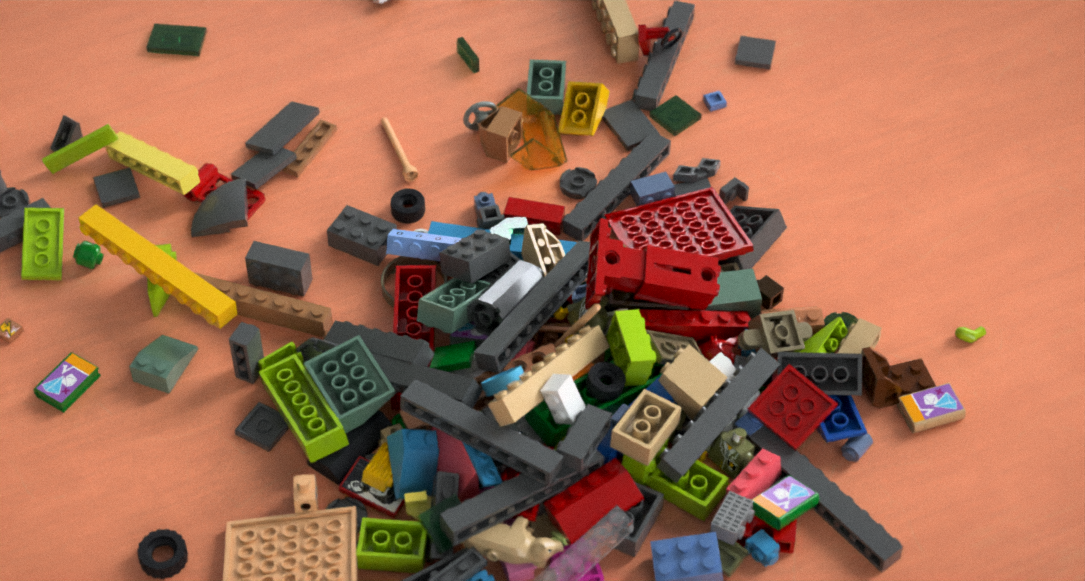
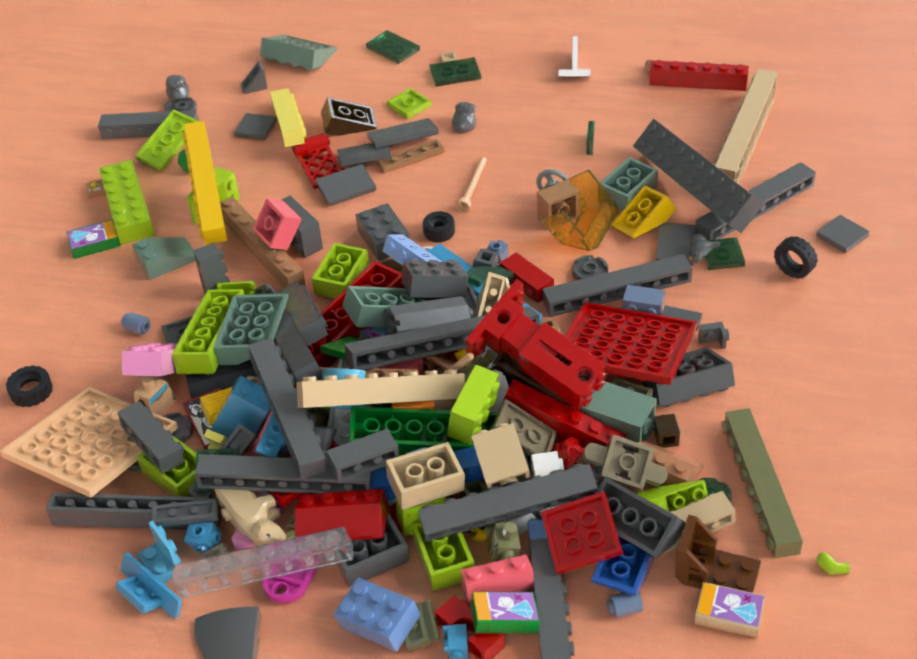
camera: 40 degrees right, 5 degrees down
(65, 326) = (126, 202): none -> lime brick
(80, 86) = (296, 51): none -> sand green slope
(80, 148) = (250, 88): lime tile -> none
(208, 136) = (347, 117): none -> dark brown slope
(208, 440) = (135, 323): none -> sand blue brick
(222, 210) = (305, 170): dark grey brick -> none
(248, 29) = (448, 56): none -> tan tile
(254, 94) = (409, 103): none -> lime tile
(268, 41) = (455, 71): none -> clear green tile
(274, 275) = (277, 224): none -> coral brick
(276, 206) = (345, 185): none -> dark grey tile
(285, 461) = (148, 360): none -> bright pink brick
(329, 86) = (464, 117): none -> dark grey hair
(358, 528) = (151, 437): none -> dark grey brick
(363, 292) = (339, 269): none -> lime brick
(563, 398) = (369, 412): white brick -> none
(607, 51) = (698, 176): none -> dark grey brick
(608, 371) = (430, 411): black tyre -> none
(646, 34) = (751, 180): red piece -> none
(659, 118) = (701, 247): none -> dark grey animal
(705, 169) = (691, 304): dark grey tile -> none
(714, 101) = (767, 257): medium blue tile -> none
(732, 518) = (442, 597): light grey brick -> none
(745, 80) = (803, 250): none -> black tyre
(872, 296) = (762, 484): none -> olive brick

